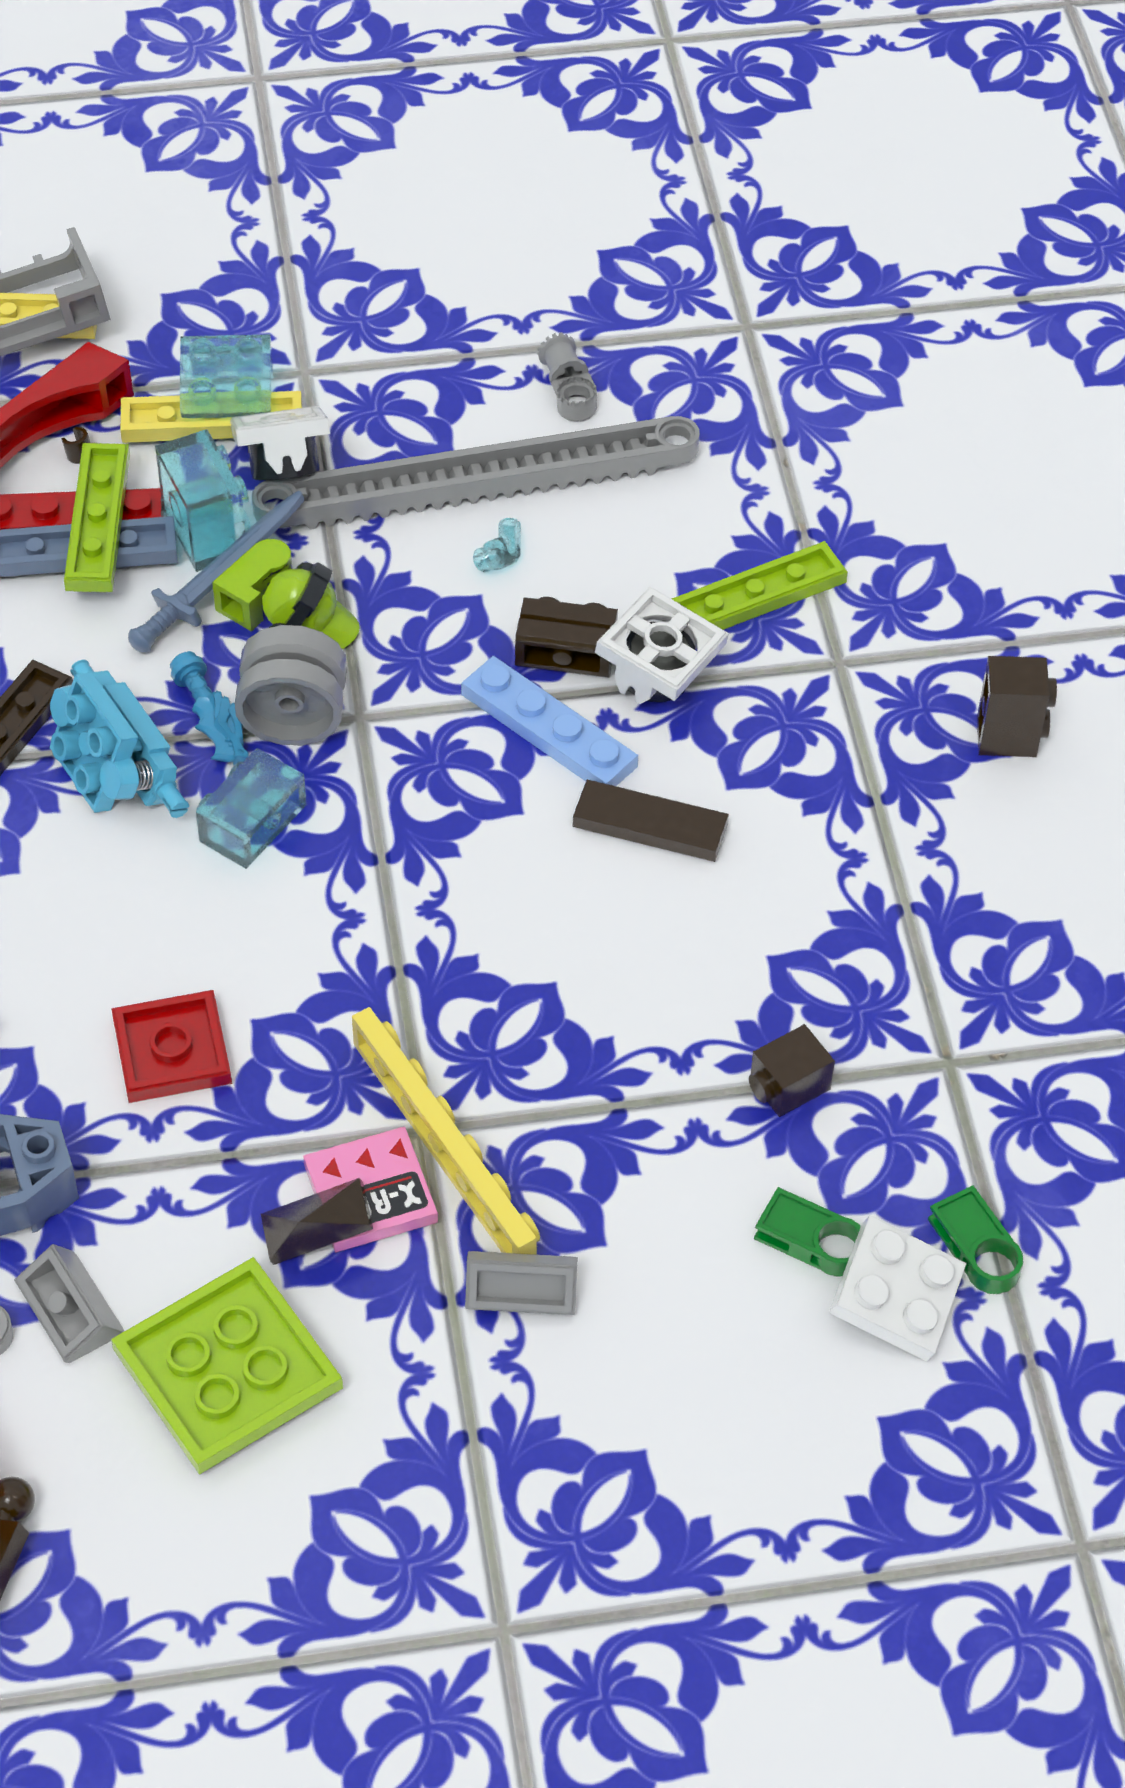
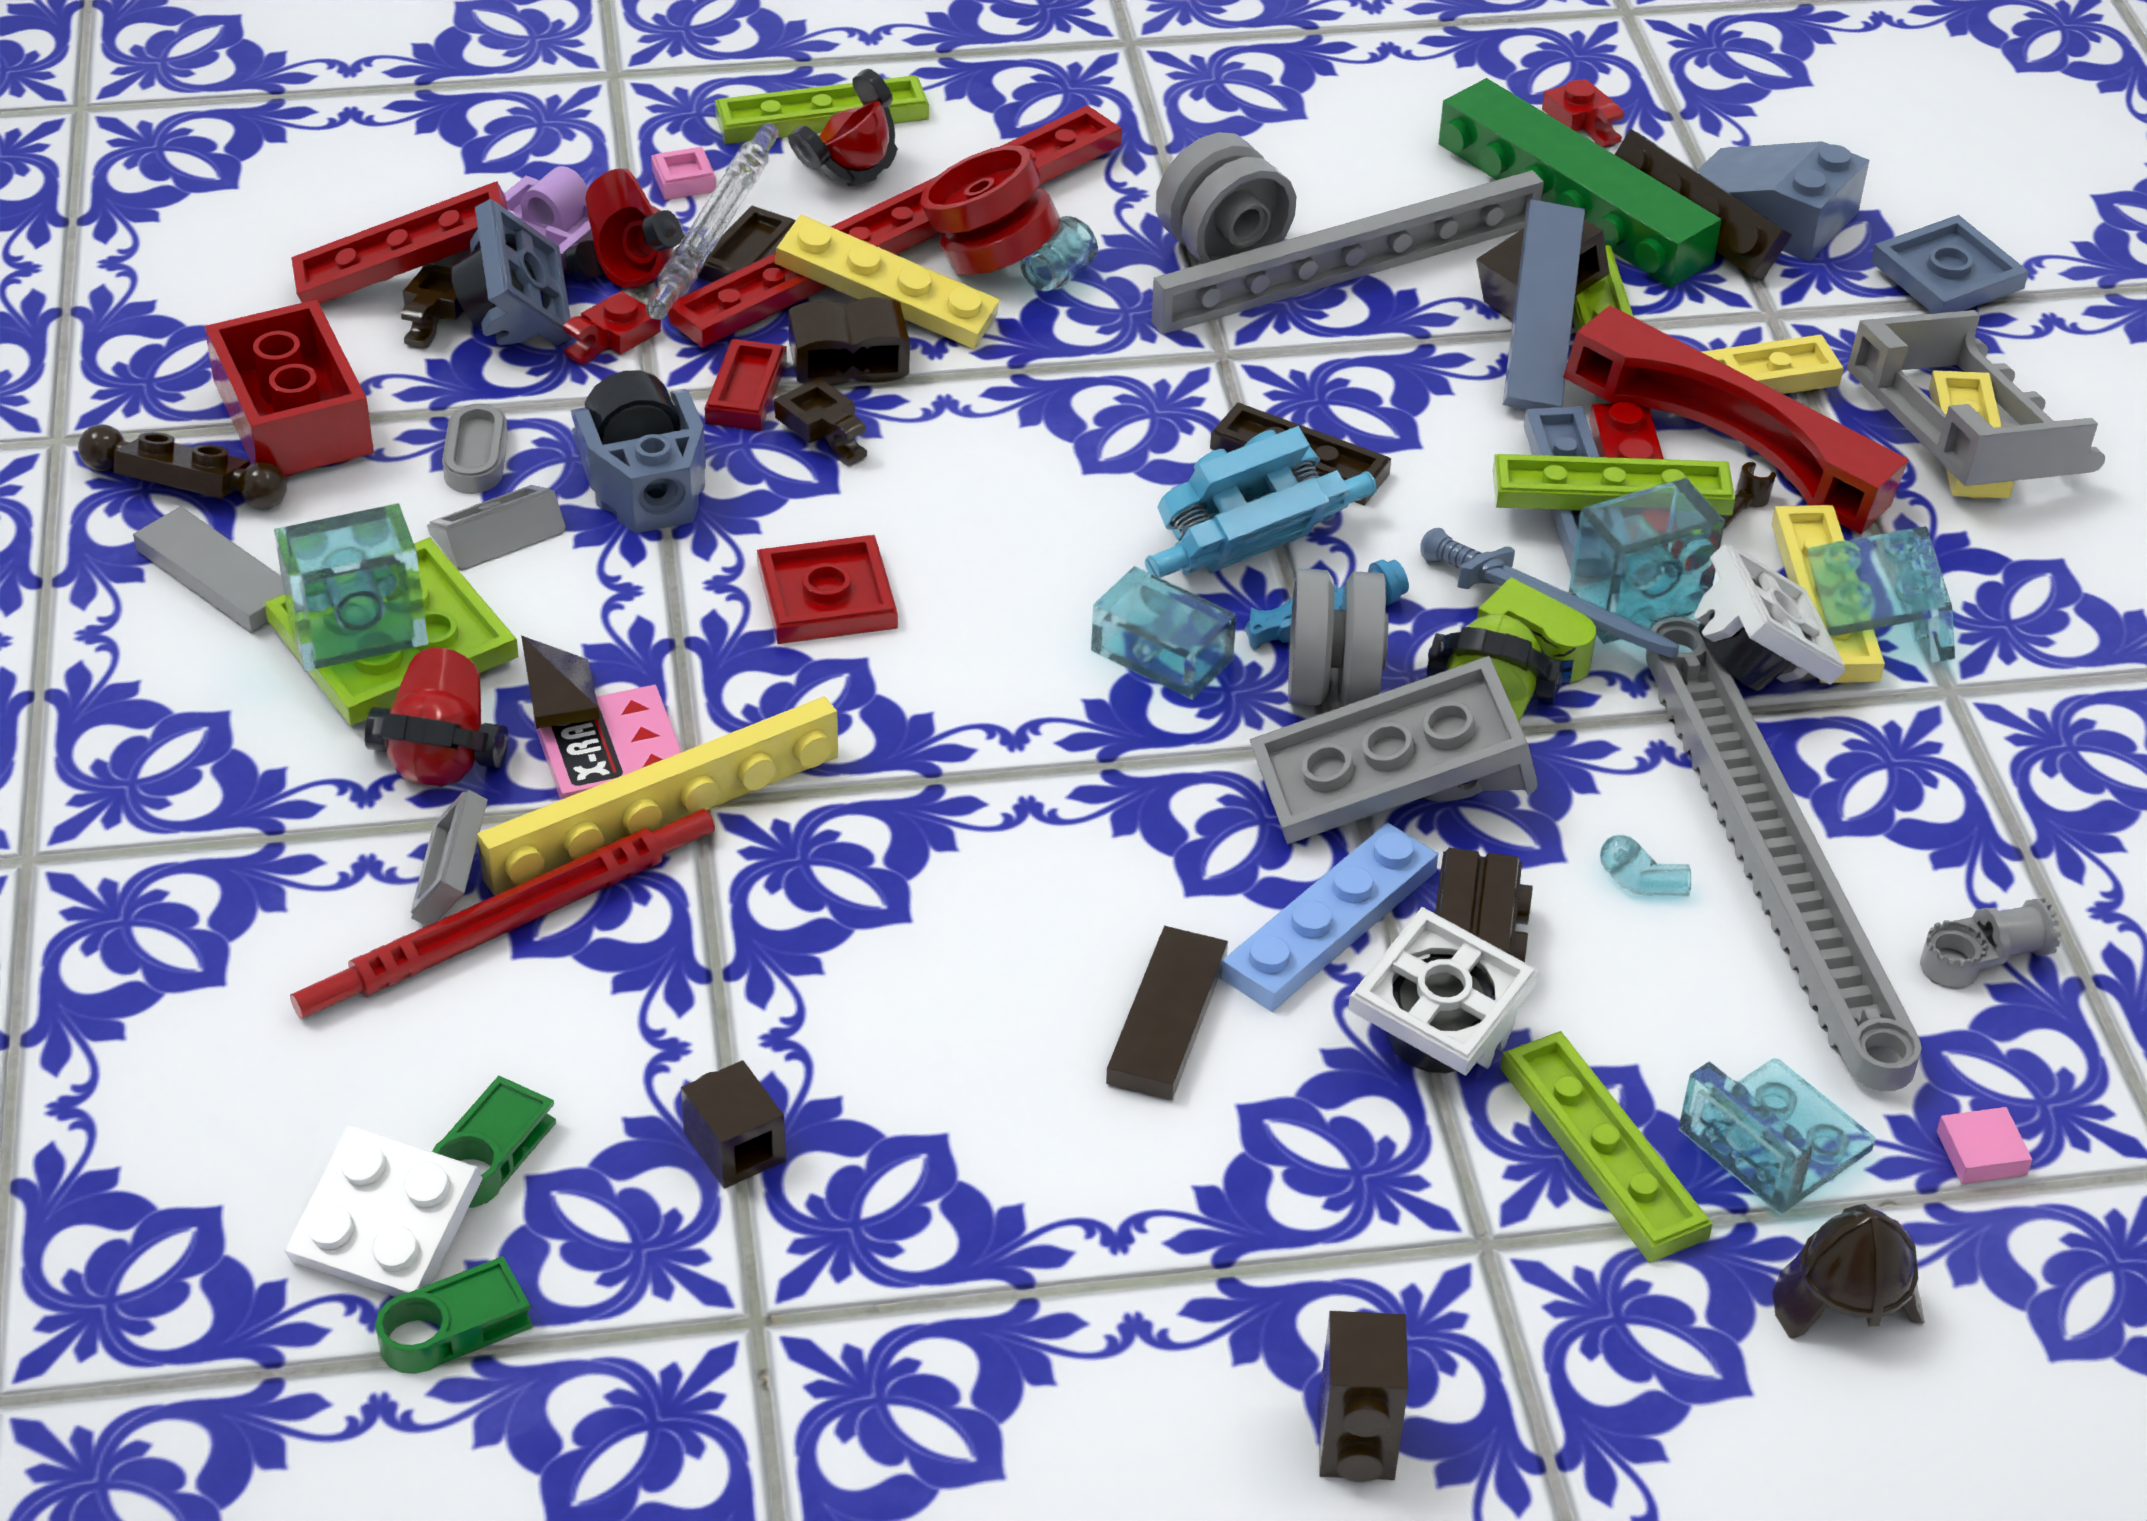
camera: 90 degrees right, 10 degrees down
(123, 1529) = (210, 566): none -> light grey tile
(238, 1354) = (351, 586): none -> clear light blue brick
(373, 1303) = (436, 722): none -> red cap
(406, 666) = (1395, 751): none -> light grey plate
(567, 1241) = (501, 913): none -> red axle
(742, 407) = (1984, 1145): none -> bright pink tile
(749, 501) = (1771, 1131): none -> clear light blue bracket
(870, 477) = (1853, 1265): none -> dark brown helmet

